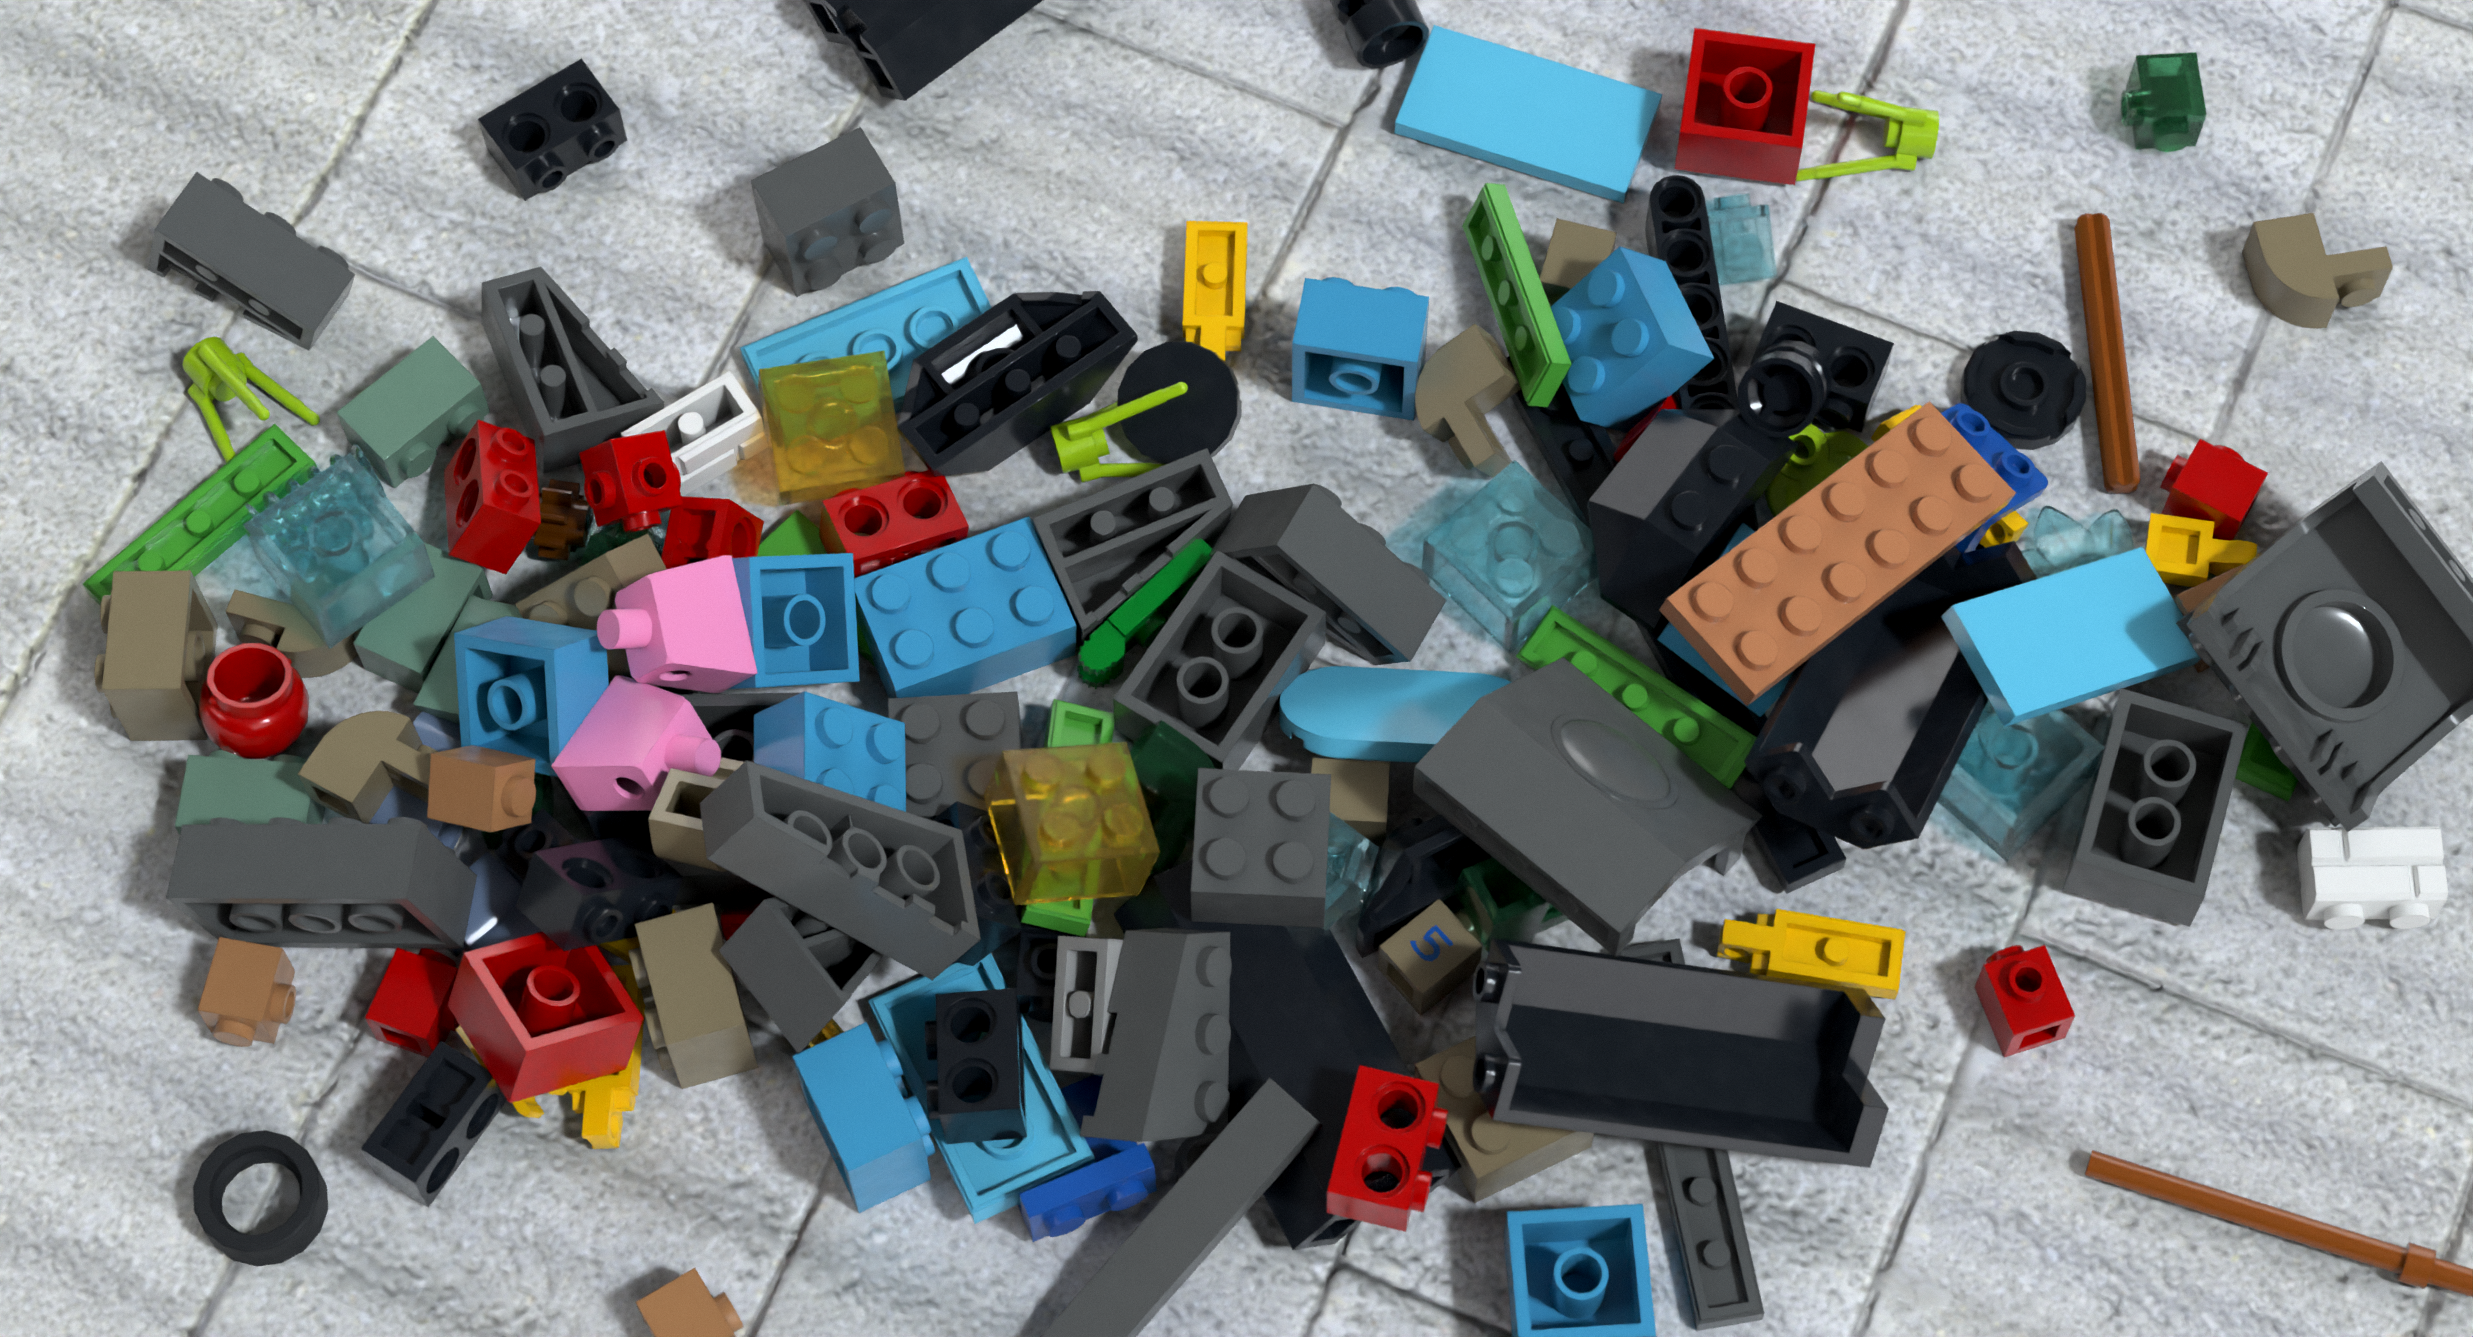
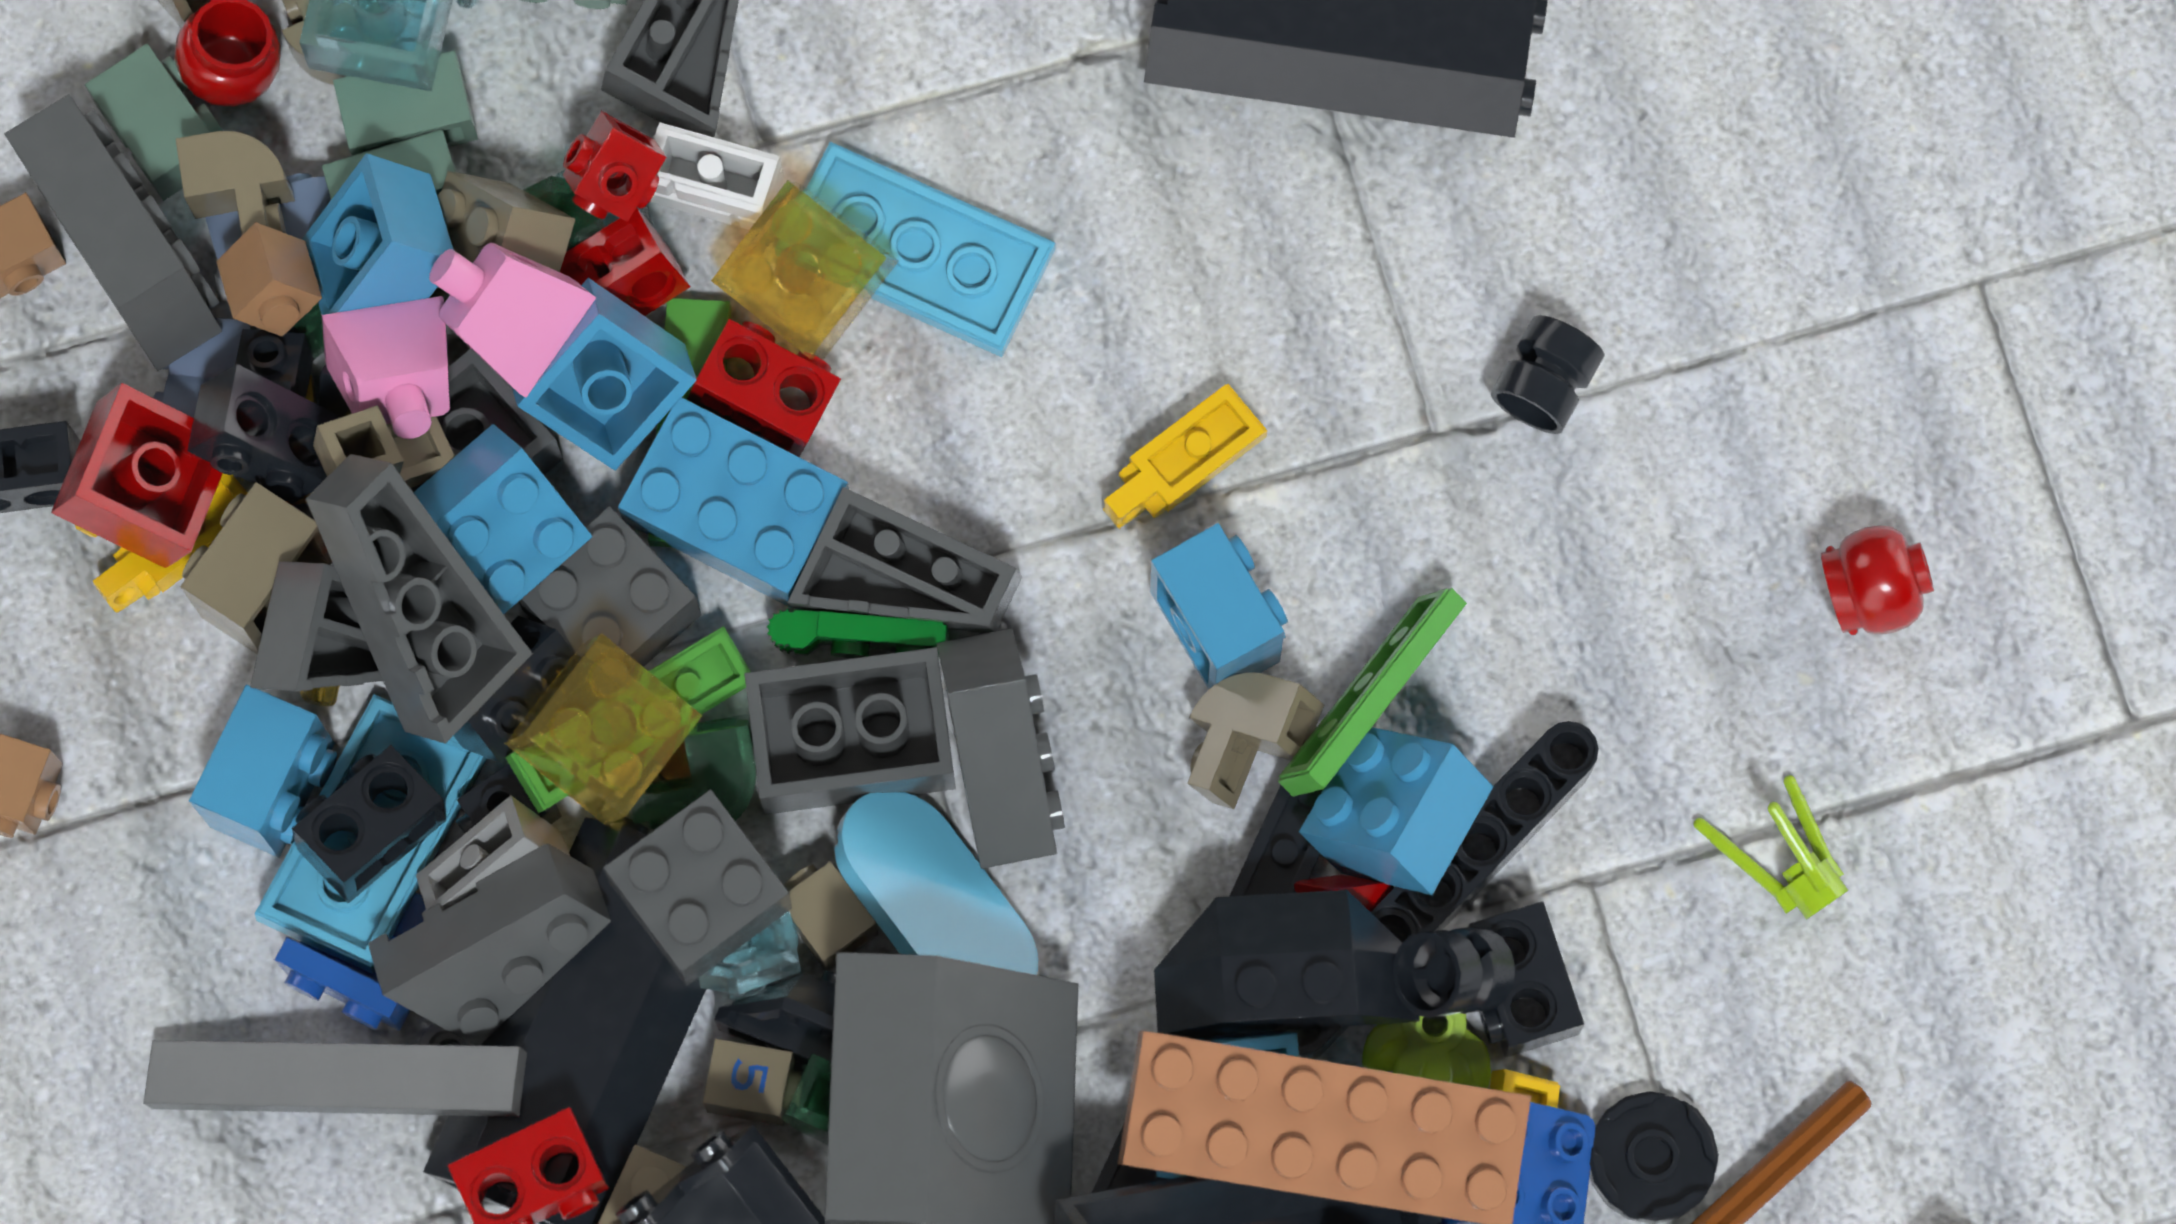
camera: 50 degrees right, 10 degrees up
(413, 1001) = (98, 365): red brick -> none
(492, 497) = (532, 74): red brick -> none
(562, 520) = (557, 128): reddish brown gear -> none
(828, 212) = (986, 111): dark grey brick -> none
(1010, 378) = (959, 364): black wedge -> none
(1083, 439) = (972, 464): lime plant -> none
(1188, 423) = (1059, 511): black tile -> none
(1510, 556) = (1141, 871): clear light blue brick -> none
(1528, 114) = (1567, 567): medium azure tile -> none
(1572, 255) = (1447, 713): dark tan brick -> none
(1671, 711) = (1102, 1061): bright green tile -> none
(1741, 239) = (1590, 824): clear light blue bracket -> none
(1745, 106) = (1709, 734): red brick -> none
(2164, 101) = (2020, 1069): clear green brick -> none

